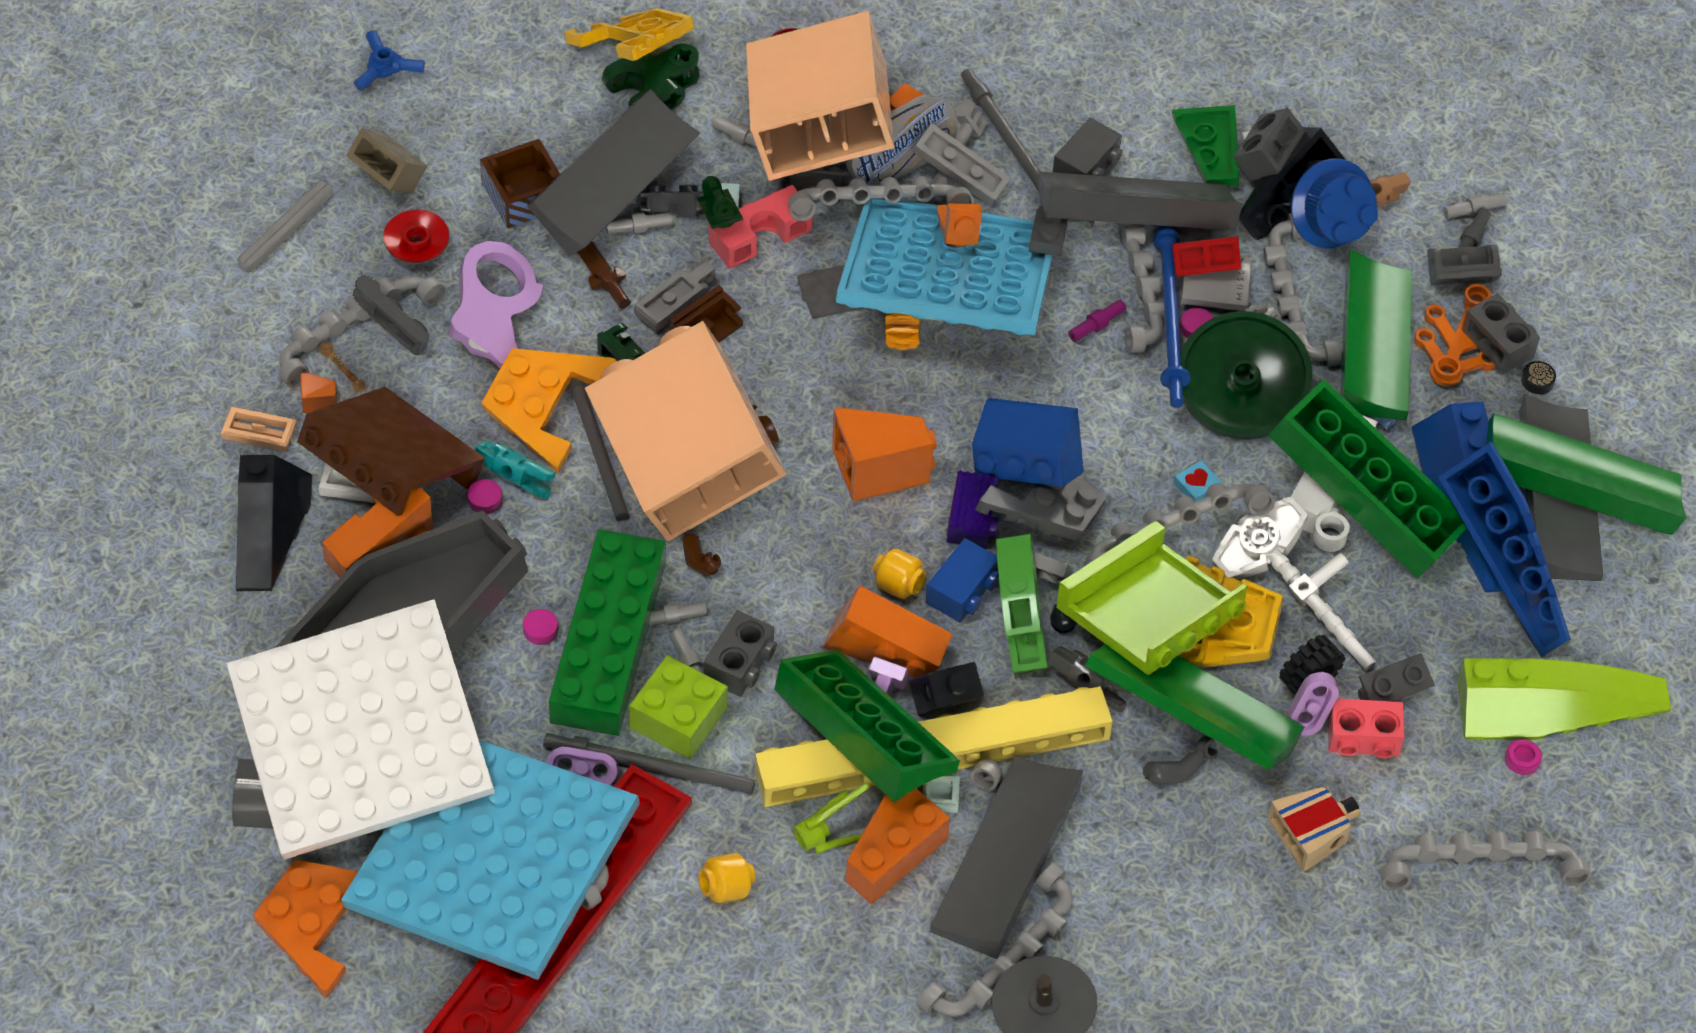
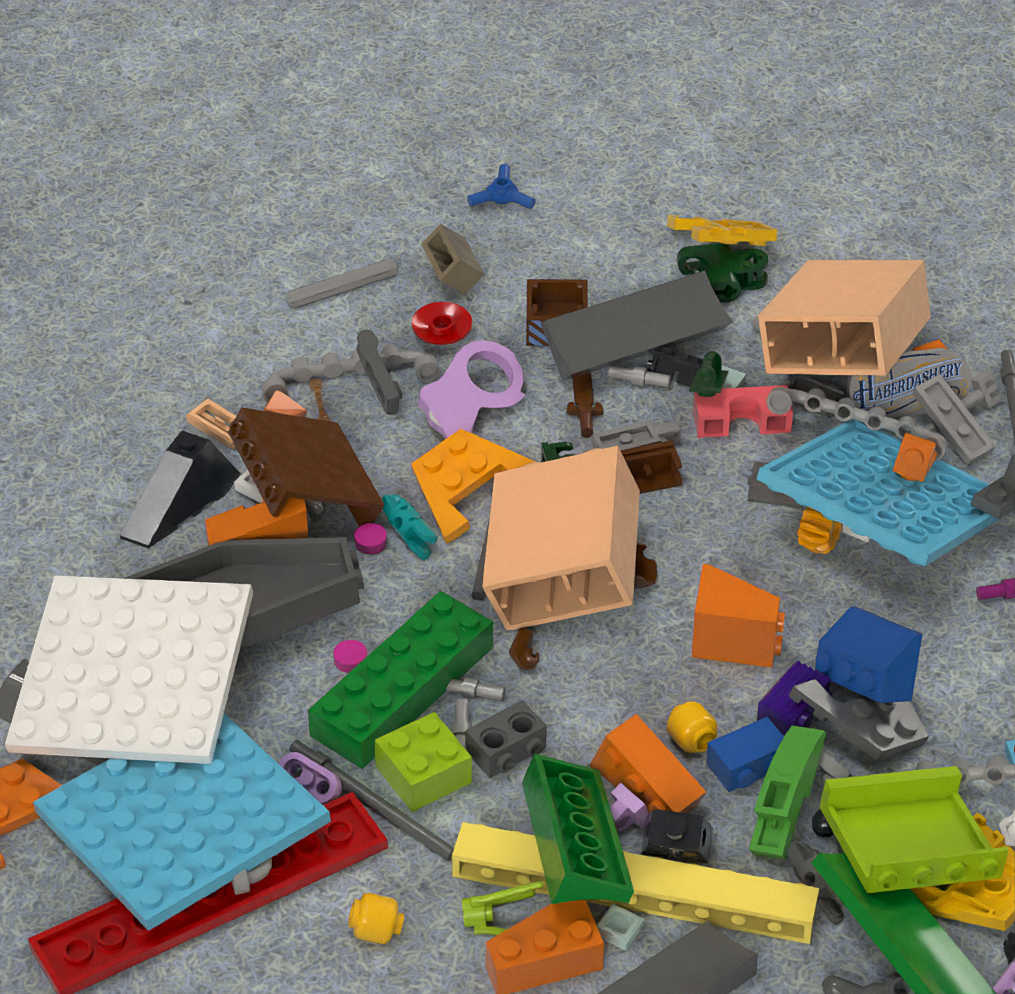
camera: 30 degrees right, 10 degrees down
(991, 777) = (669, 926): light grey hinge -> none

